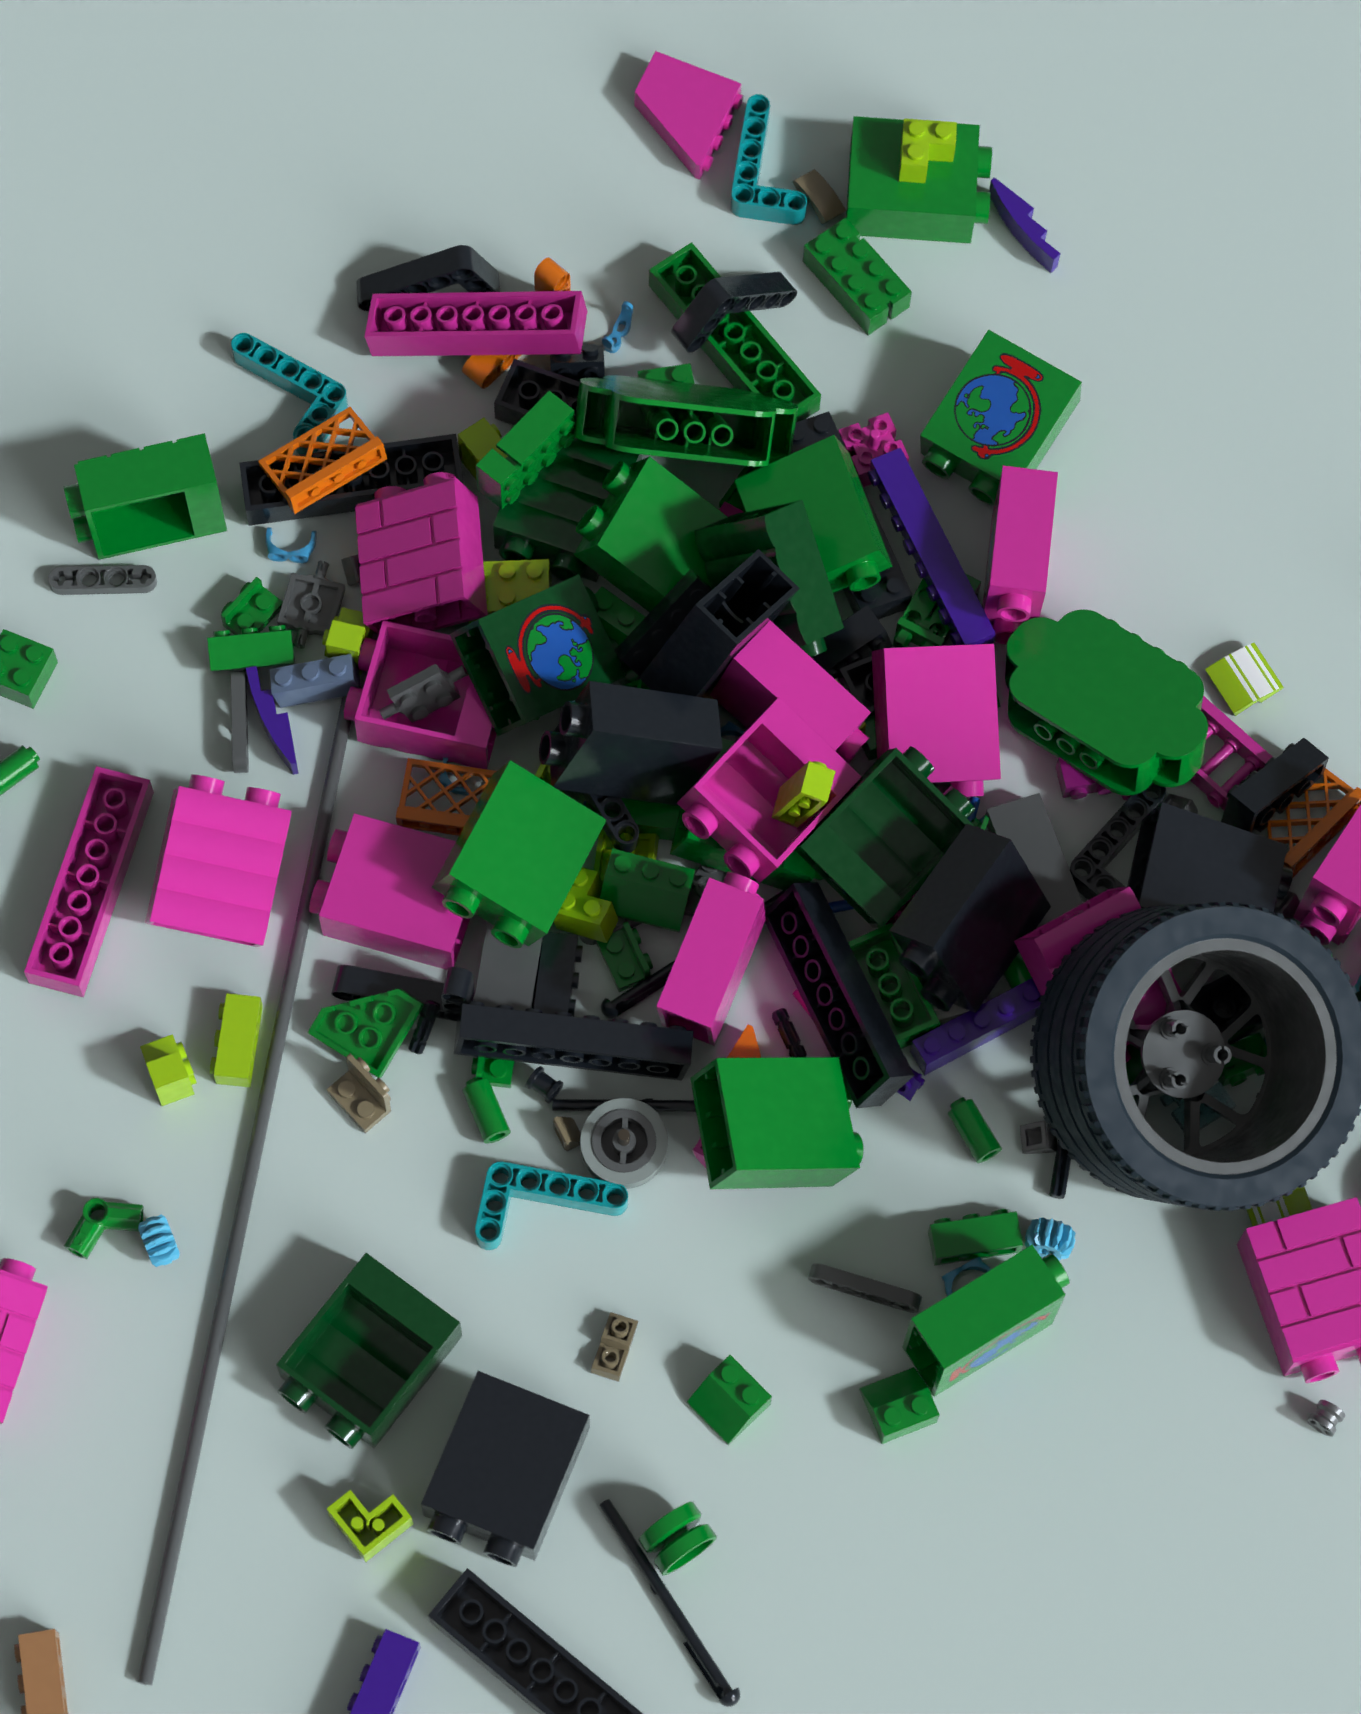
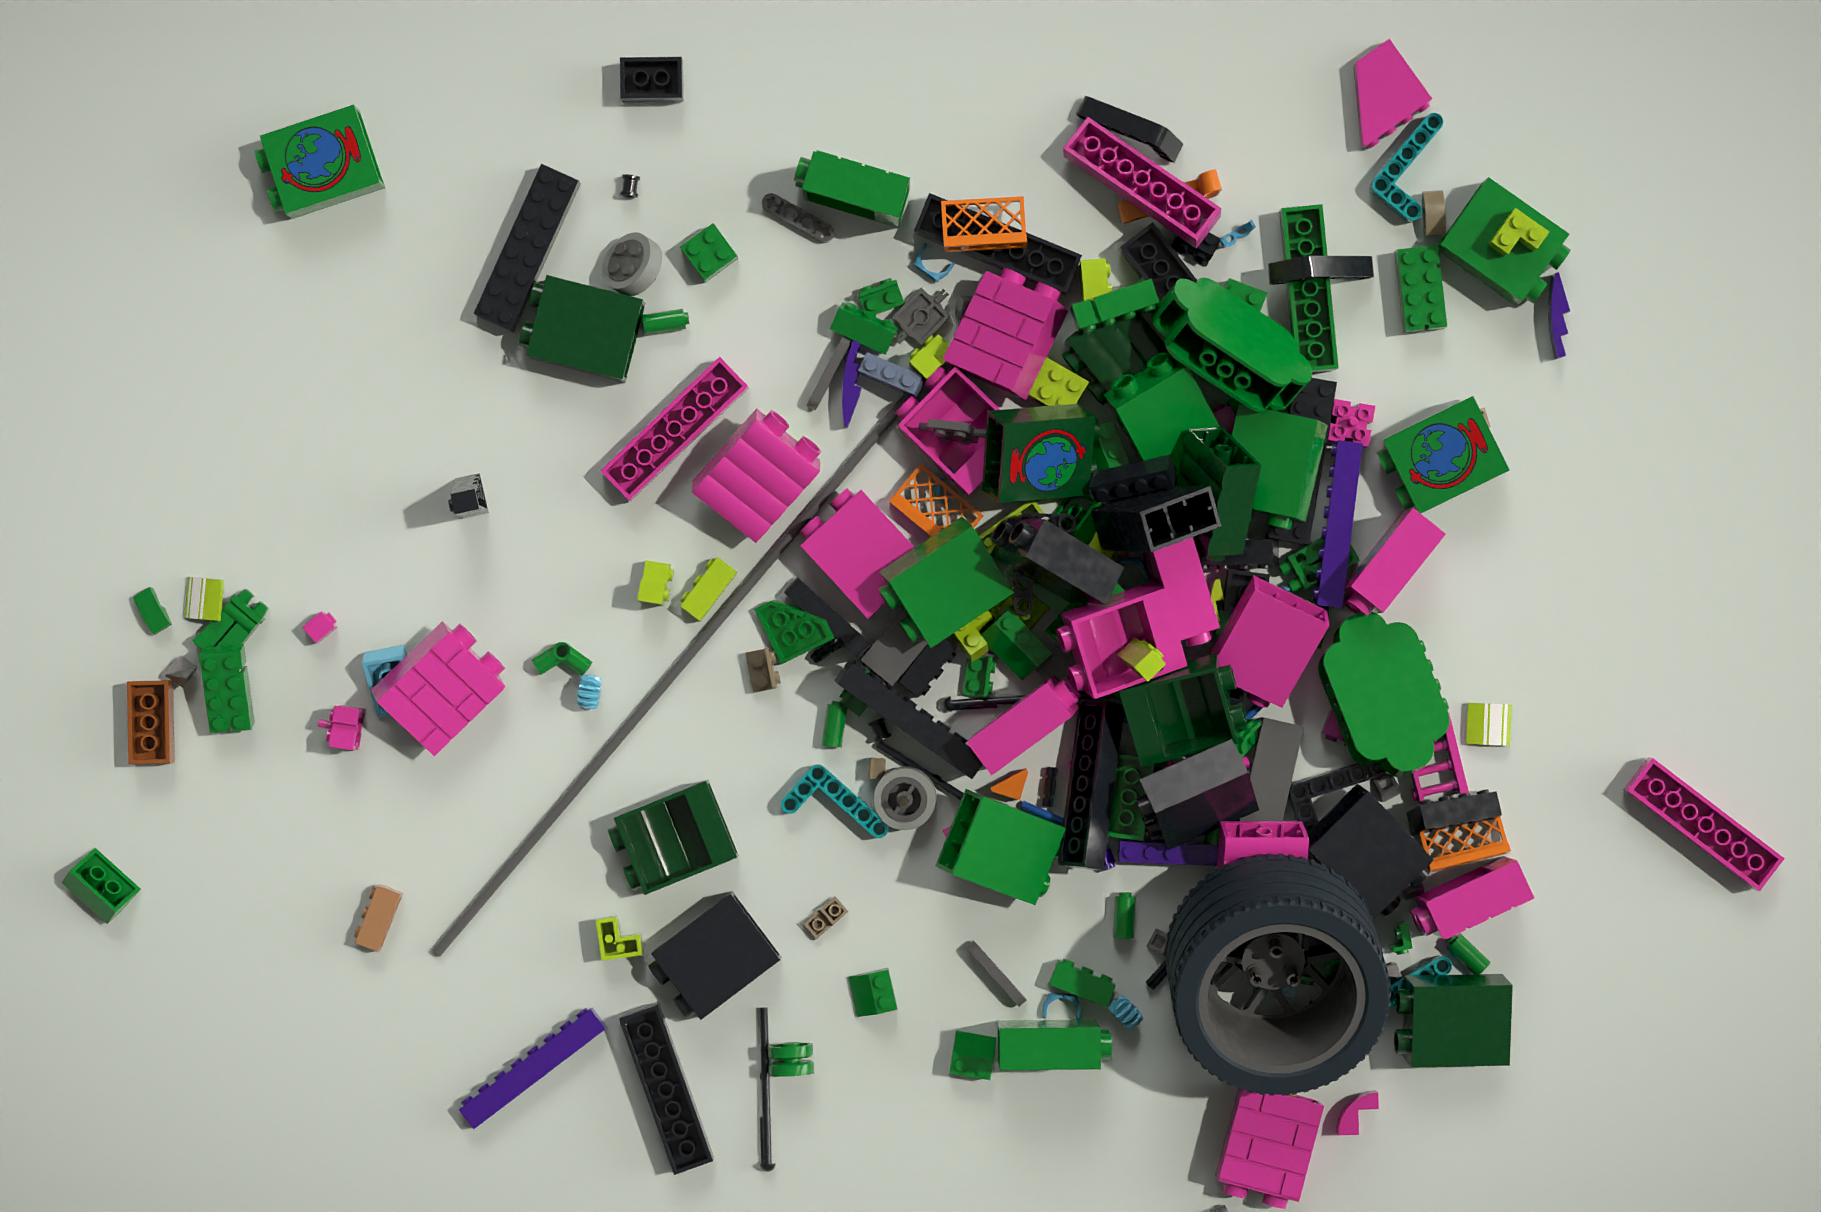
camera: 30 degrees right, 20 degrees up
(296, 384) = (1002, 150): teal beam -> none

